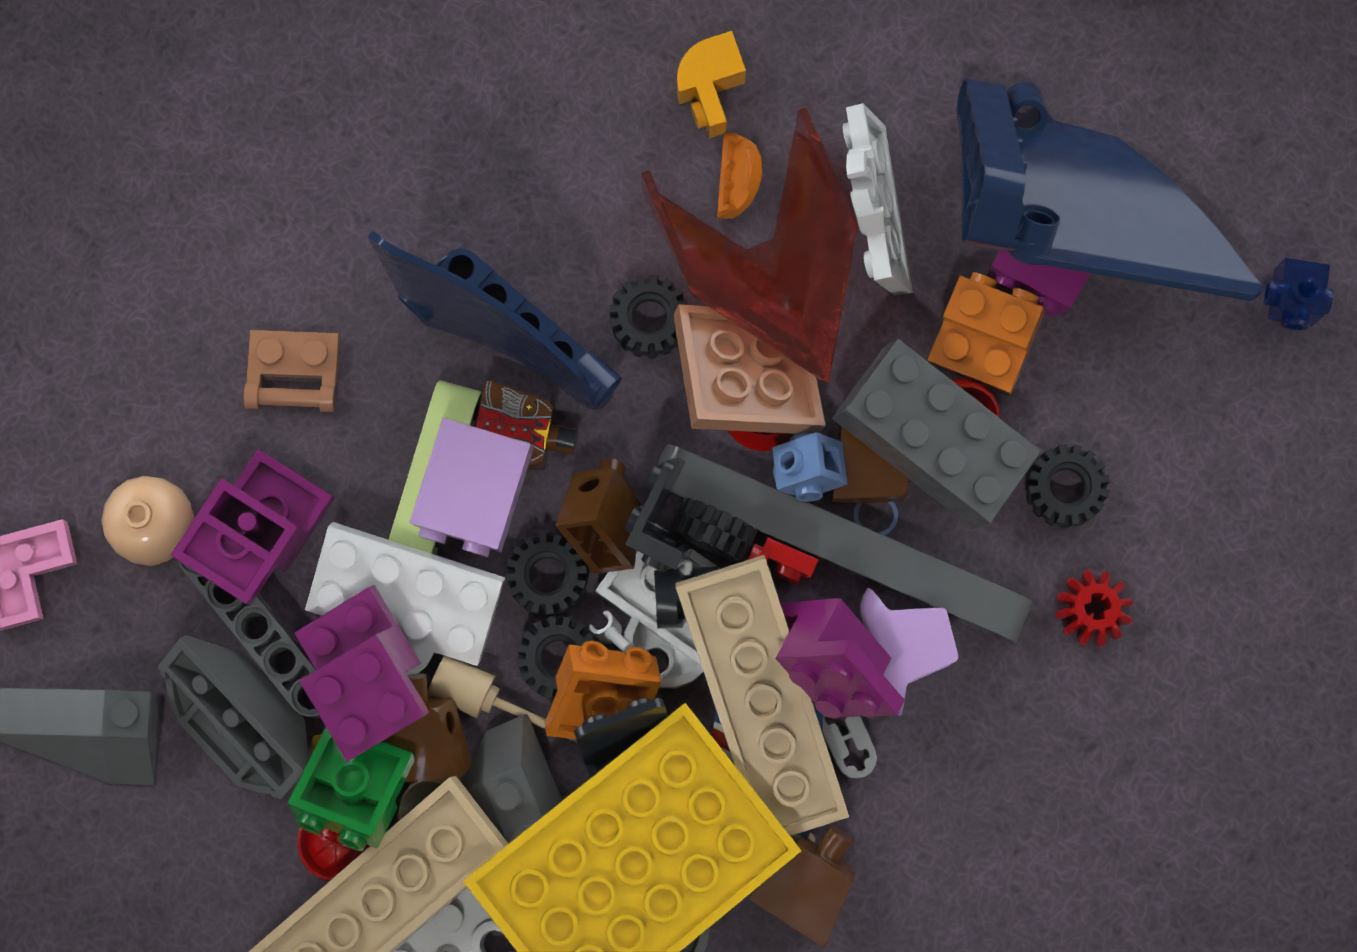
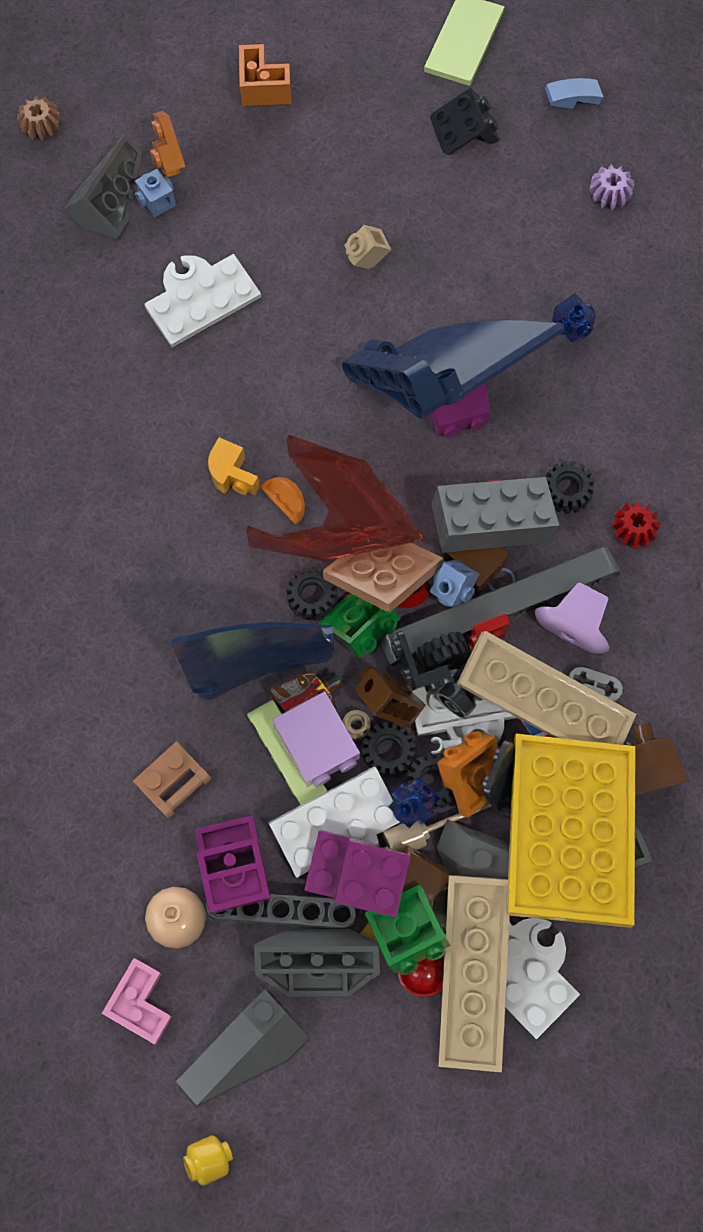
camera: 45 degrees left, 10 degrees down
(502, 661) = (413, 803): none -> clear blue brick
(531, 504) = (360, 716): none -> tan plate
(656, 405) = (359, 624): none -> green plate
(836, 660) = (563, 645): magenta bracket -> none
(876, 199) = (366, 450): white plate -> none
(987, 332) = (465, 454): orange plate -> none

